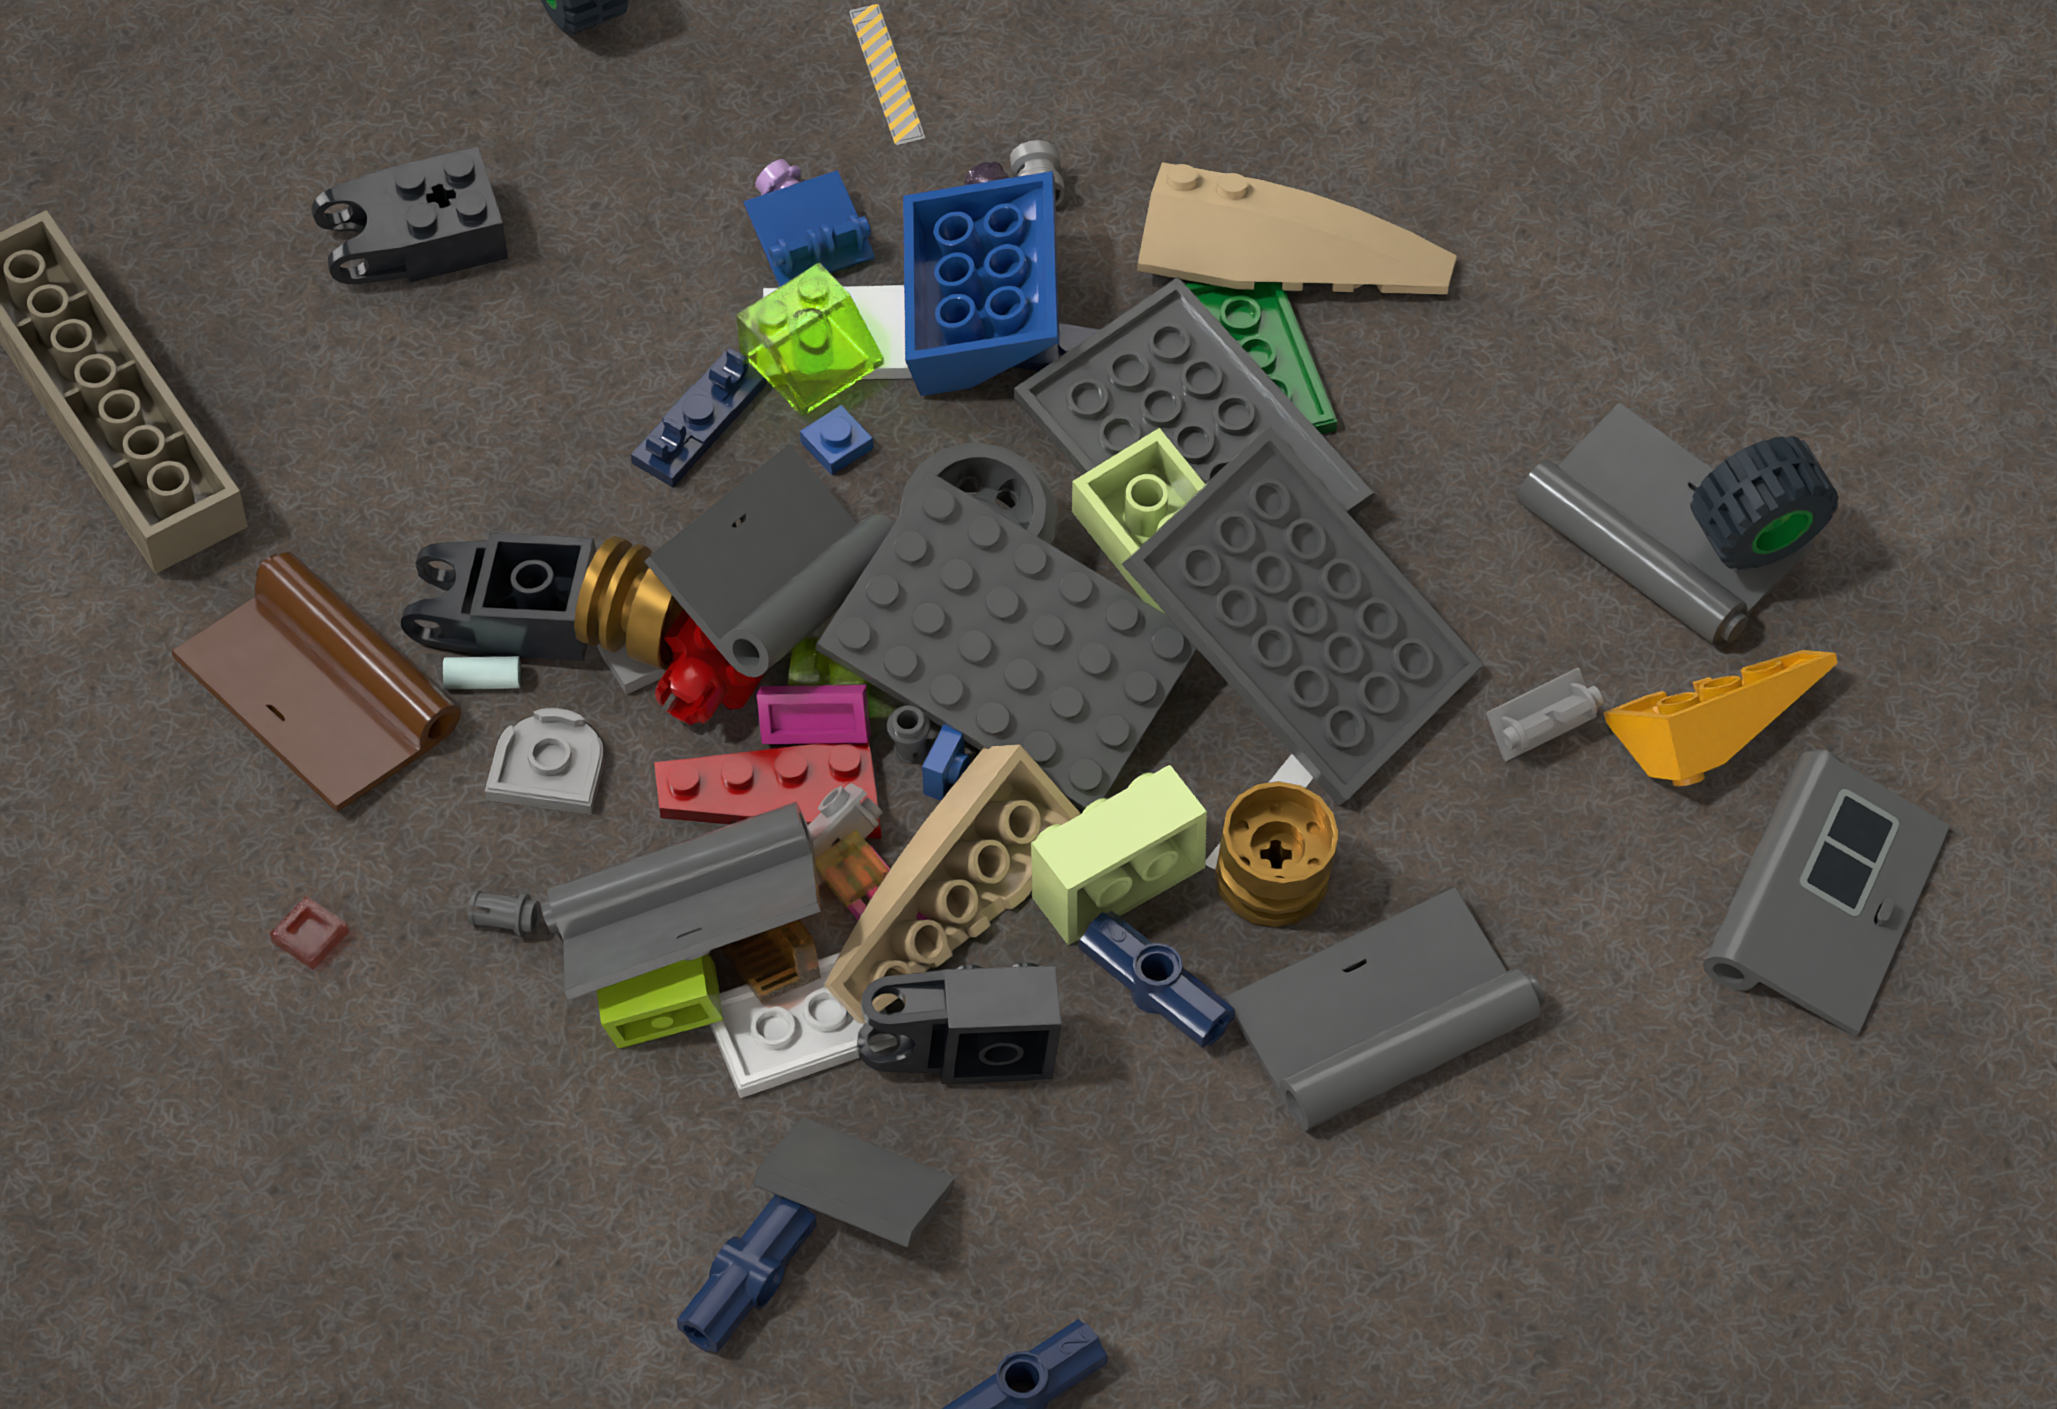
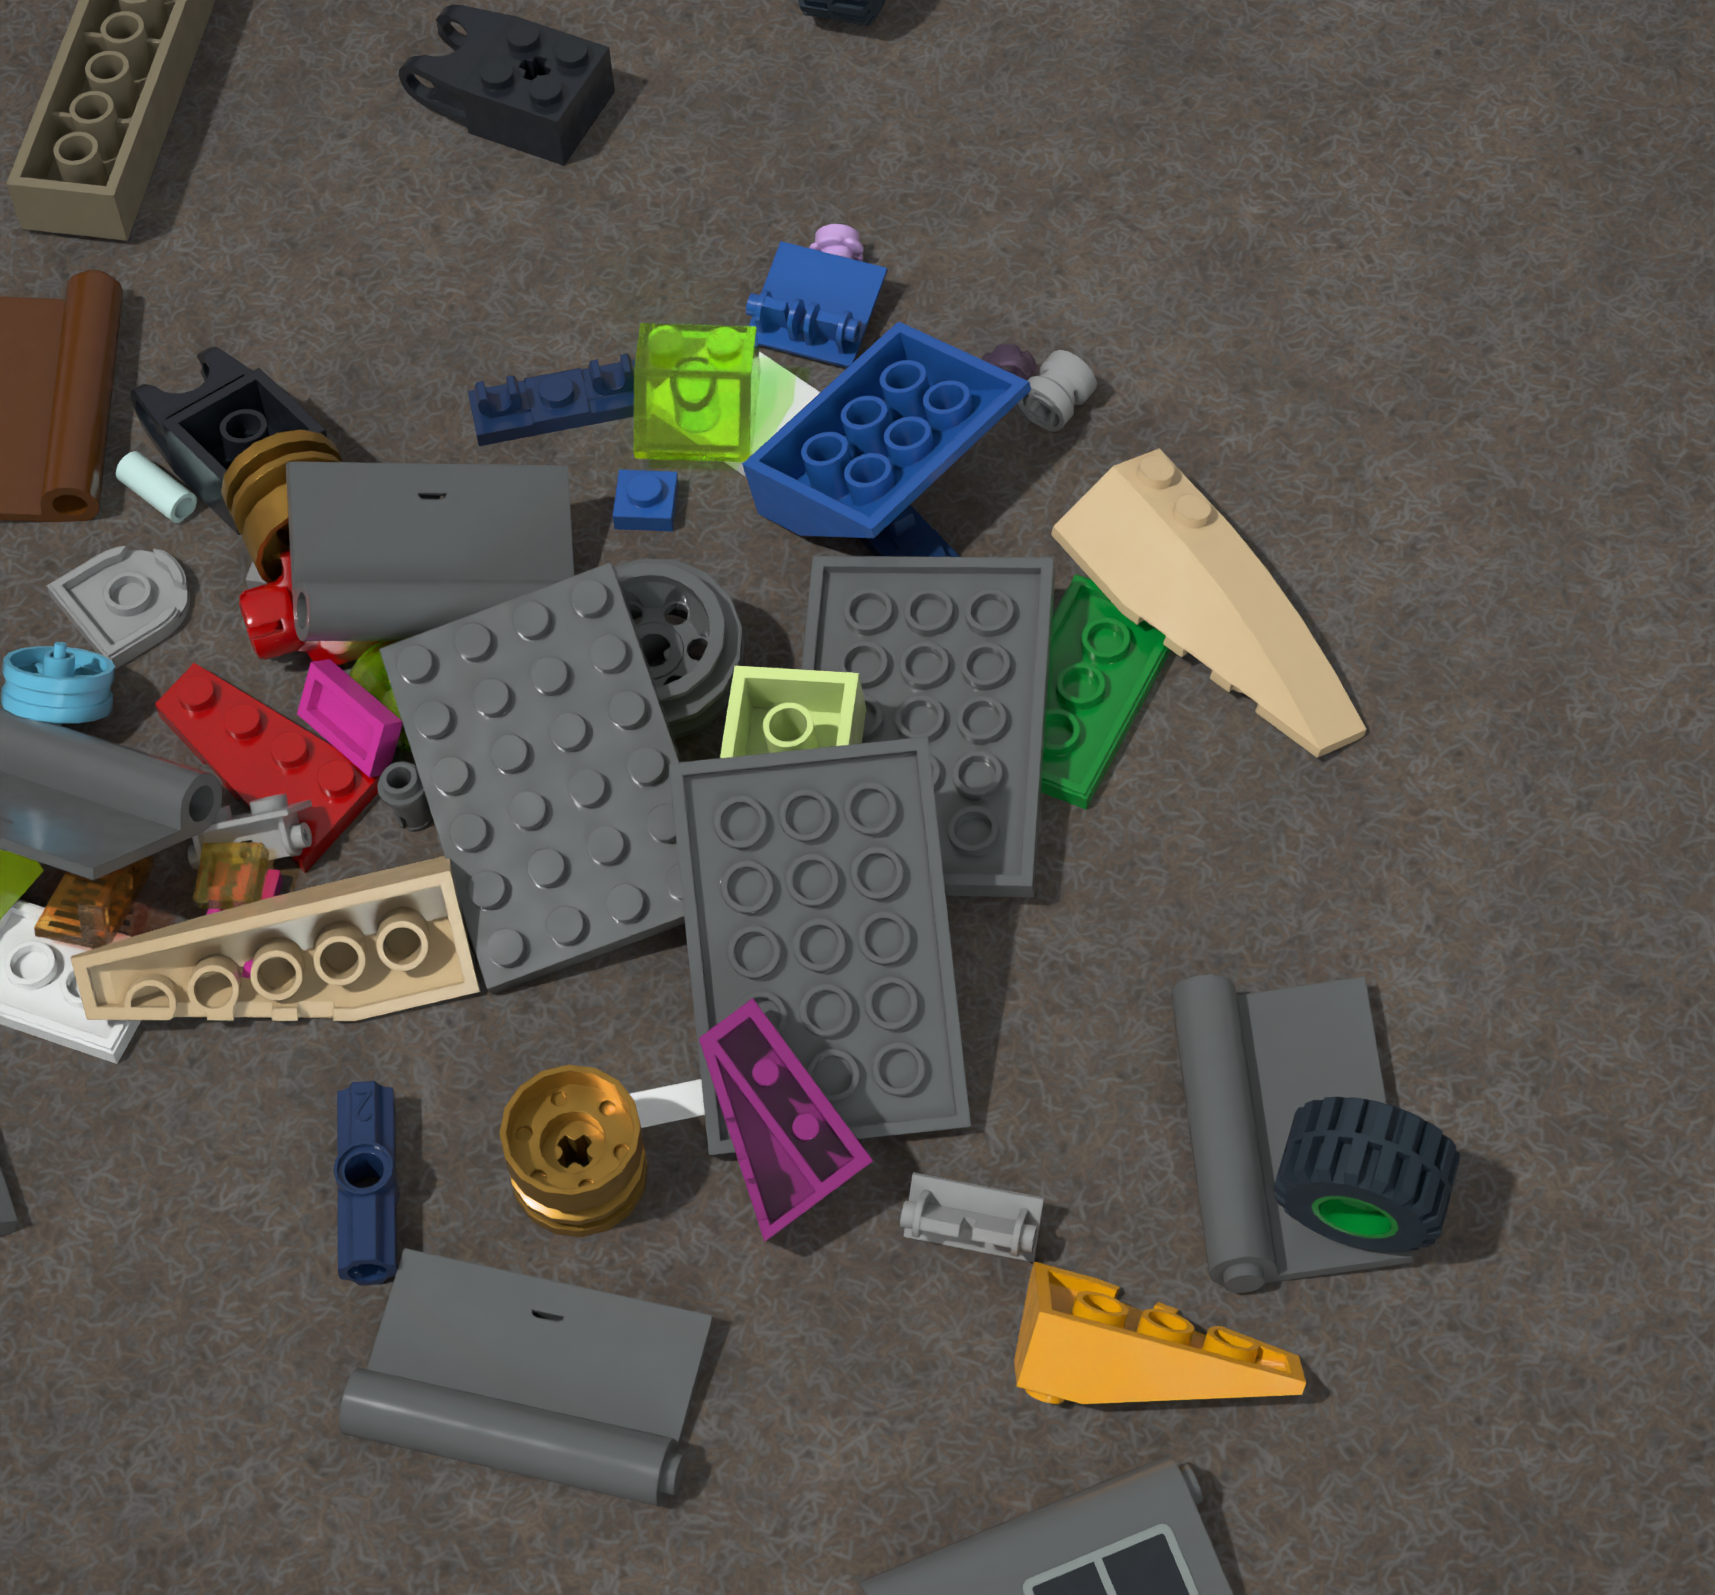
camera: 45 degrees right, 0 degrees up
(590, 838) = (57, 684): none -> medium azure wheel
(887, 74) = (1036, 222): sticker -> none
(944, 763) = (408, 840): blue plate -> none
(968, 1023) = (152, 1088): black brick -> none
(1118, 852) = (438, 1035): yellowish green brick -> none
(1386, 737) = (778, 1119): none -> magenta wedge

